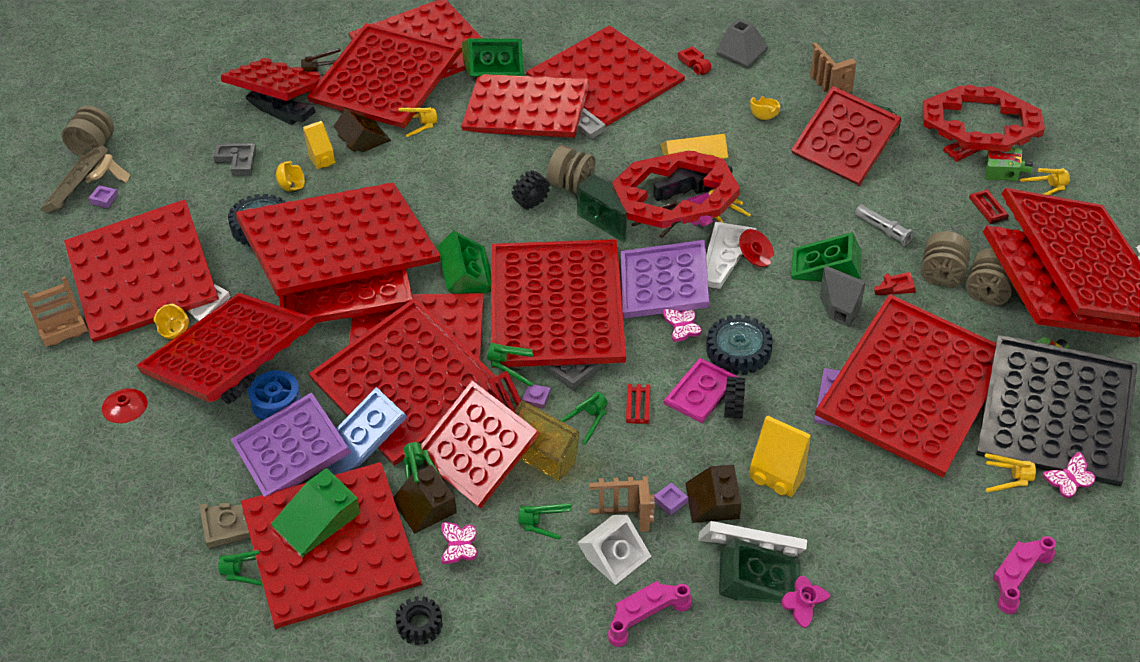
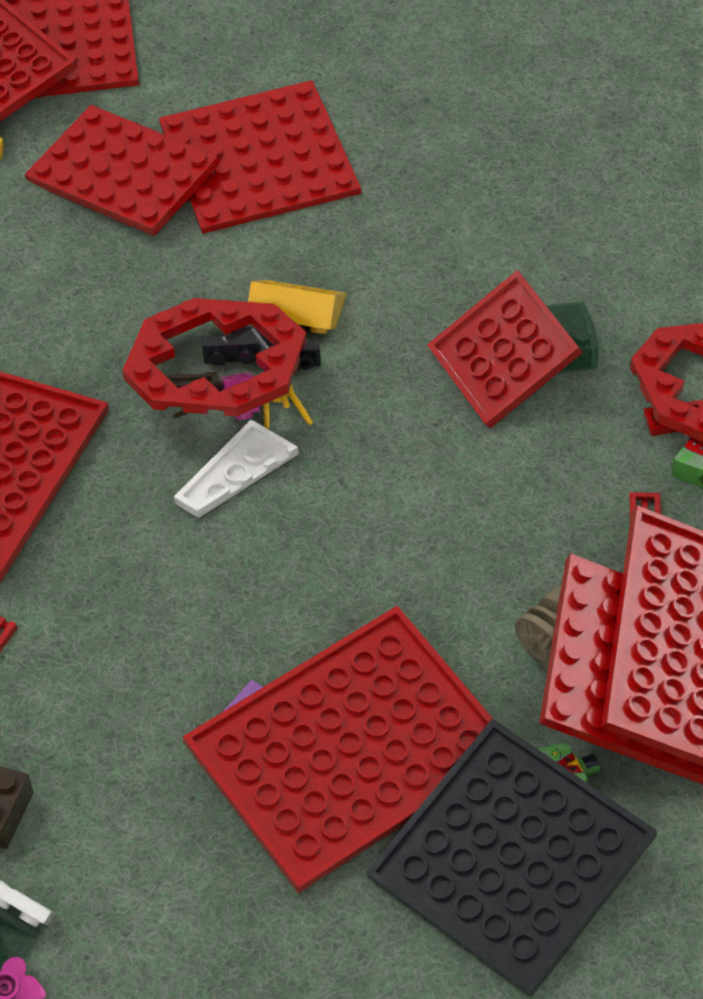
camera: 25 degrees right, 5 degrees up
(493, 56) = (121, 87): green slope -> none
(530, 189) = (38, 285): black tyre -> none
(569, 168) = (108, 283): dark tan wheel -> none
(590, 125) = (187, 223): light grey plate -> none
(601, 207) = (111, 345): clear green slope -> none
(664, 279) = (128, 481): medium lavender plate -> none
(682, 323) = (110, 552): dark pink animal -> none
(695, 58) = (391, 166): red plate -> none
(699, 390) = (76, 653): dark pink tile -> none
(734, 397) = (98, 680): black tyre -> none
(739, 344) = (163, 607): wheel -> none
(742, 43) = (468, 162): dark grey slope -> none
(756, 247) = (287, 468): red dish -> none
(764, 108) = (425, 266): yellow hair -> none
(780, 457) = (87, 790): yellow slope -> none
(831, 74) = (558, 255): medium nougat plate -> none
(836, 252) = (362, 527): green slope -> none
(841, 295) = (335, 587): dark grey slope -> none
(891, 229) = (482, 508): light grey pin -> none
(896, 284) = (433, 593): red slope -> none
(945, 259) = (512, 580): dark tan wheel -> none
(1022, 470) = (406, 923): yellow plant -> none
(1072, 477) = (462, 960): dark pink animal -> none

